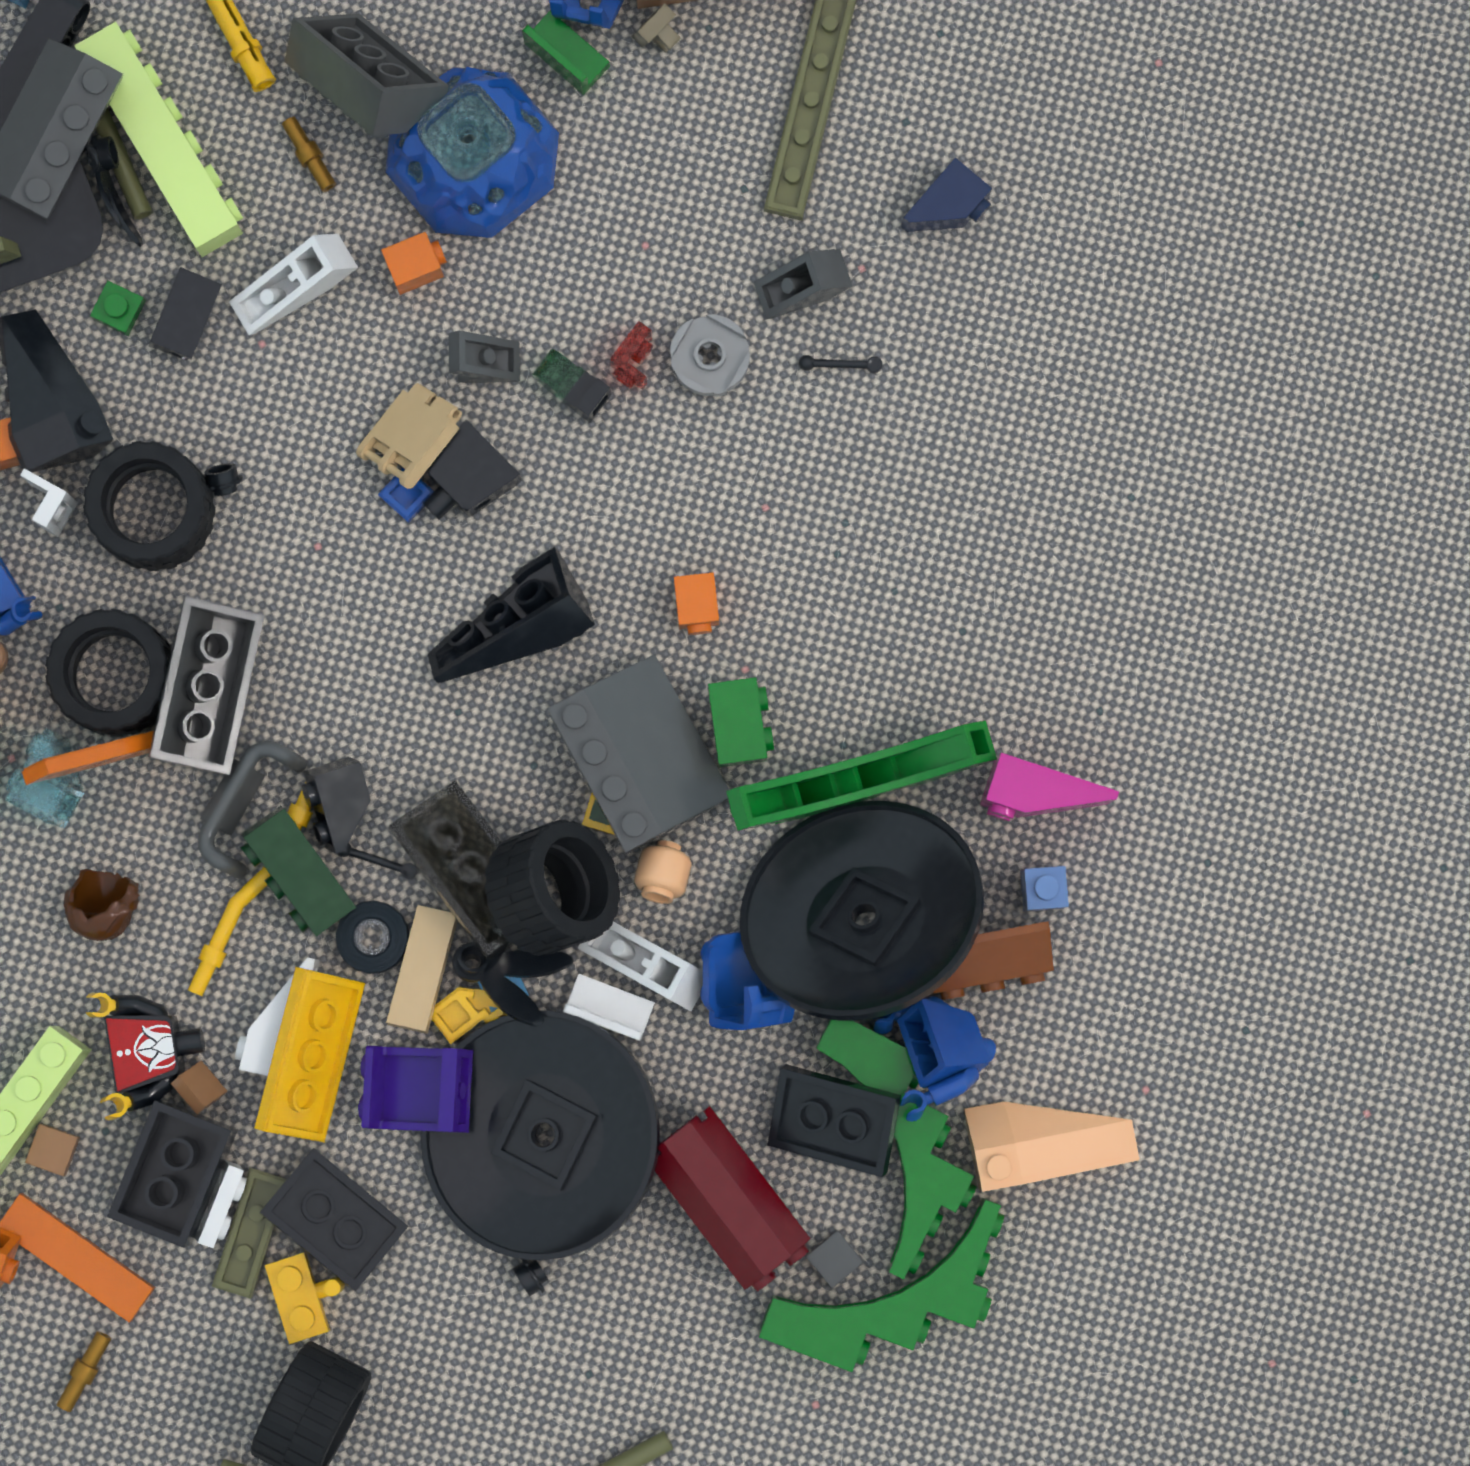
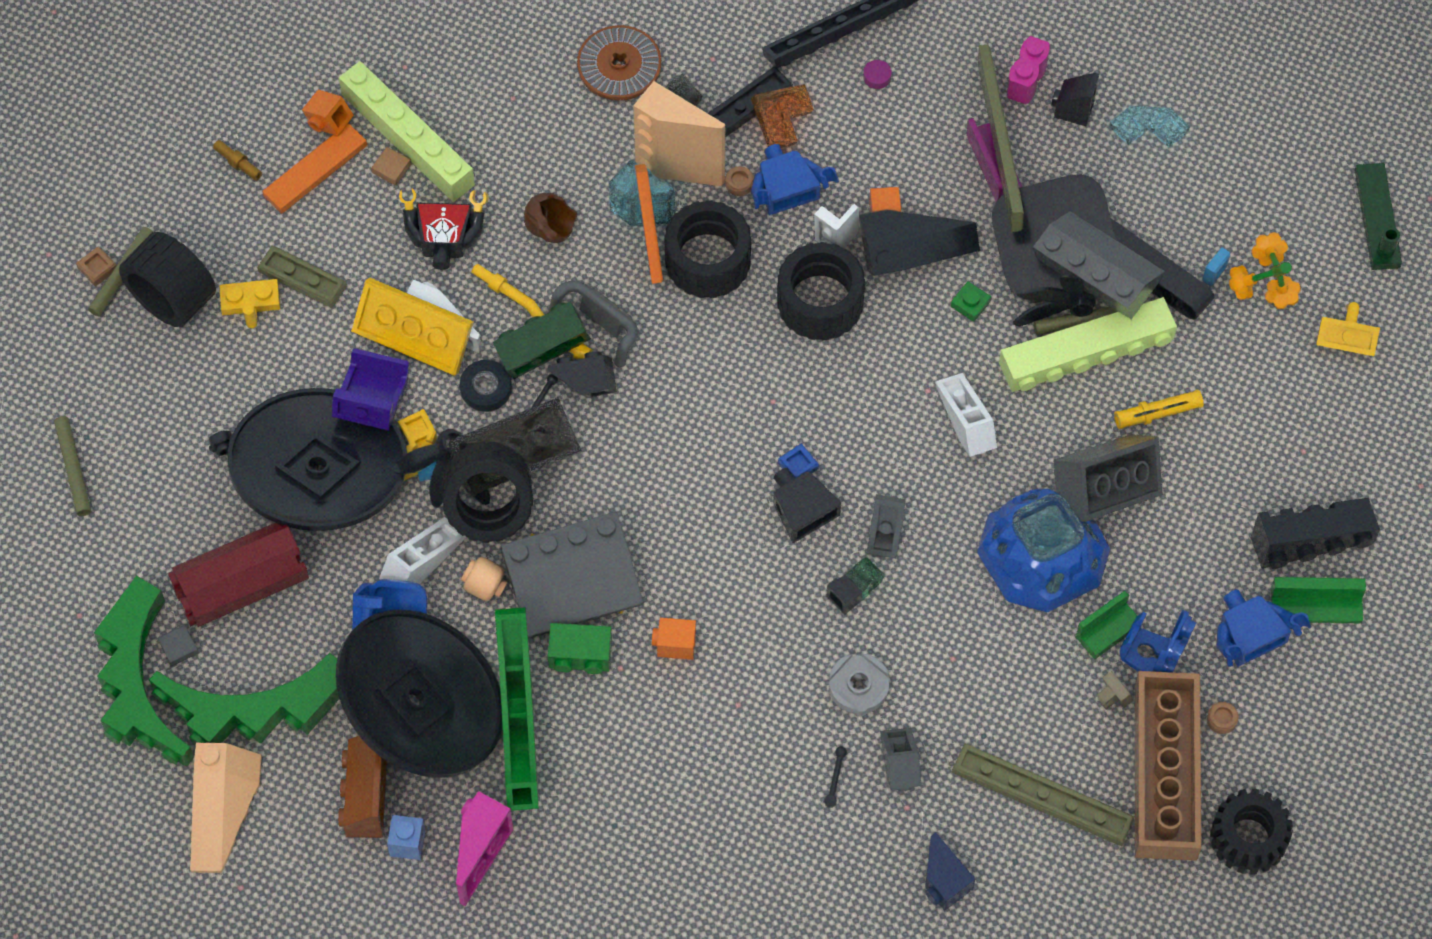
camera: 105 degrees right, 20 degrees down
(172, 1173) = (354, 229): black brick -> none
(185, 314) = (957, 338): black hinge -> none
(199, 1087) = (409, 258): medium nougat tile -> none
(206, 686) = (684, 300): dark grey slope -> none
(215, 1219) = (335, 264): white plate -> none
(223, 479) = (833, 345): black plate -> none
(308, 154) = (1061, 441): pearl gold bar -> none
(333, 1219) = (295, 324): black plate -> none
(411, 434) = (838, 467): tan plate -> none
(414, 262) = (966, 494): orange brick -> none
(422, 969) = (450, 408): tan tile -> none
(528, 618) = (686, 518): black wedge -> none
(609, 1007) = (394, 525): white panel -> none
(633, 349) = (872, 628): clear red bracket -> none
(834, 1120) = (275, 655): black plate -> none
(942, 1049) = (306, 737): blue torso -> none

